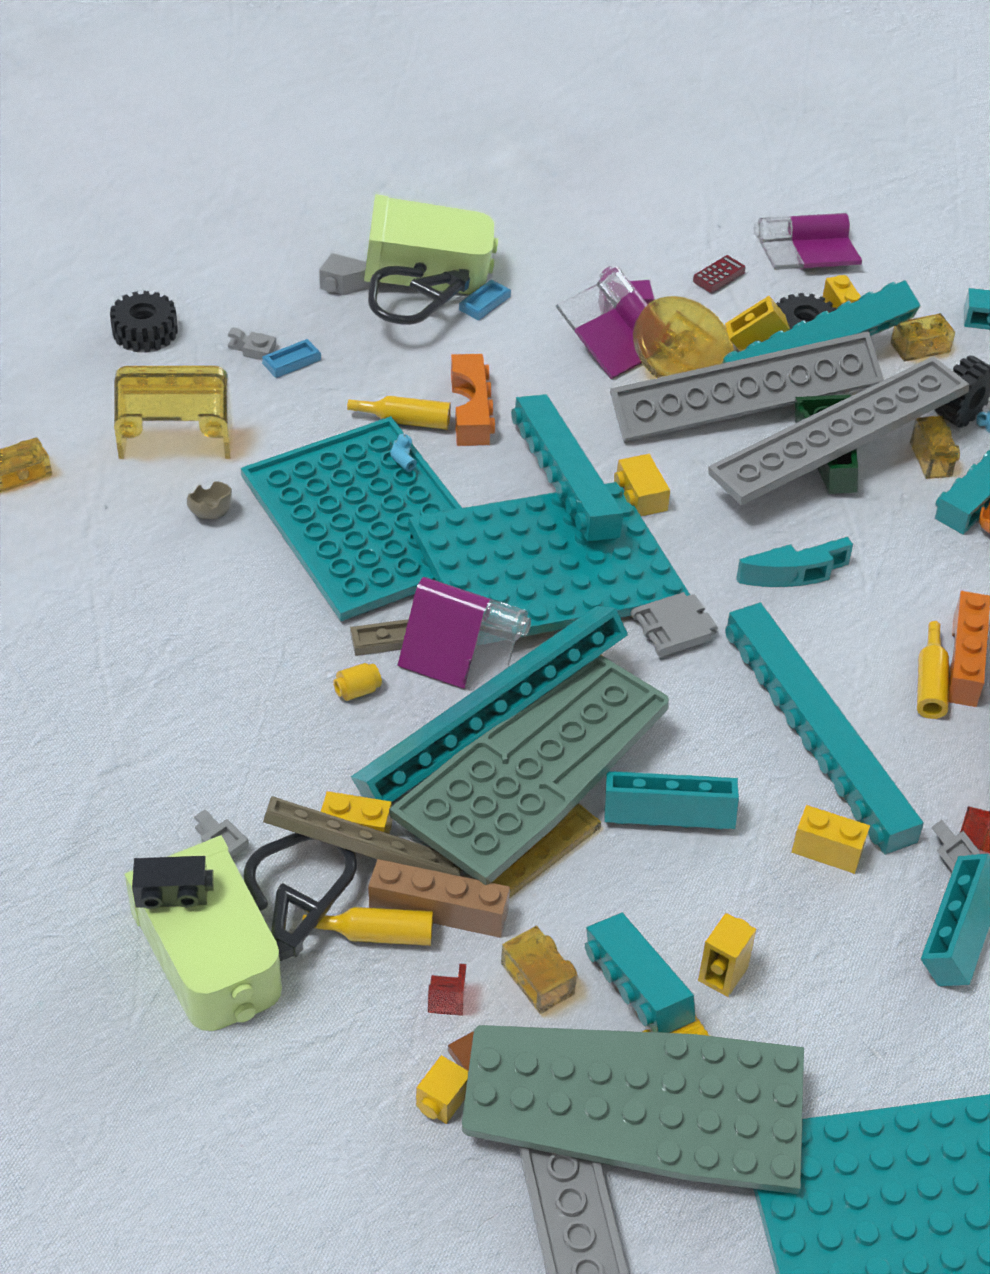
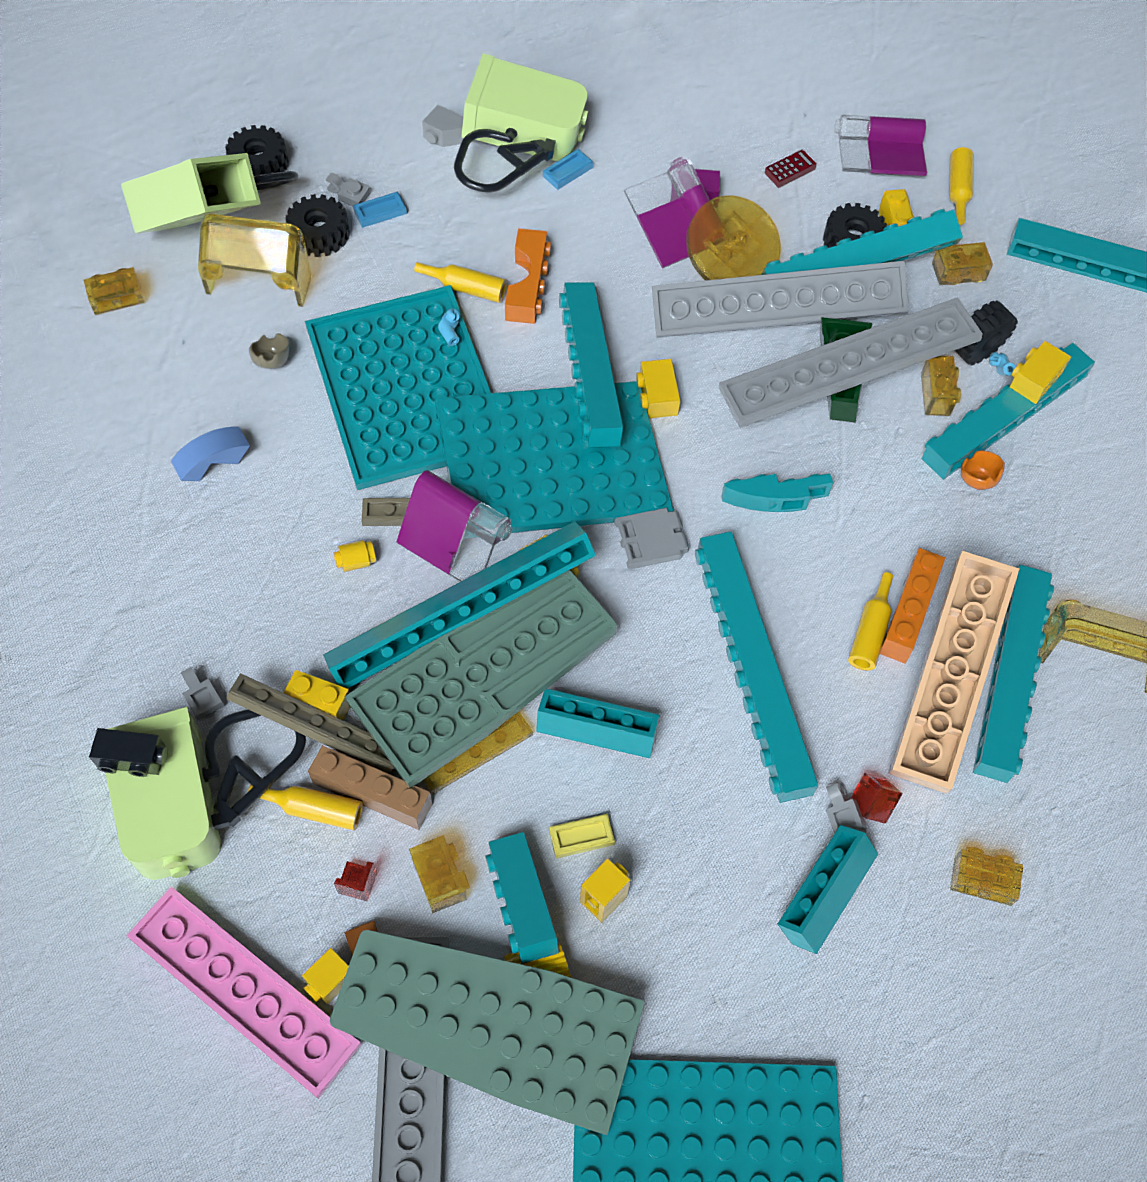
camera: 10 degrees right, 15 degrees up
(93, 348) = (194, 189): none -> yellowish green piece
(176, 594) = (217, 446): none -> medium blue brick
(243, 372) = (324, 237): none -> black tyre
(351, 1121) = (244, 991): none -> bright pink plate
(682, 915) = (581, 836): none -> light yellow tile
(756, 324) = (806, 234): yellow brick -> none
(830, 839) = (731, 784): yellow brick -> none
(897, 258) = (961, 180): none -> yellow piece

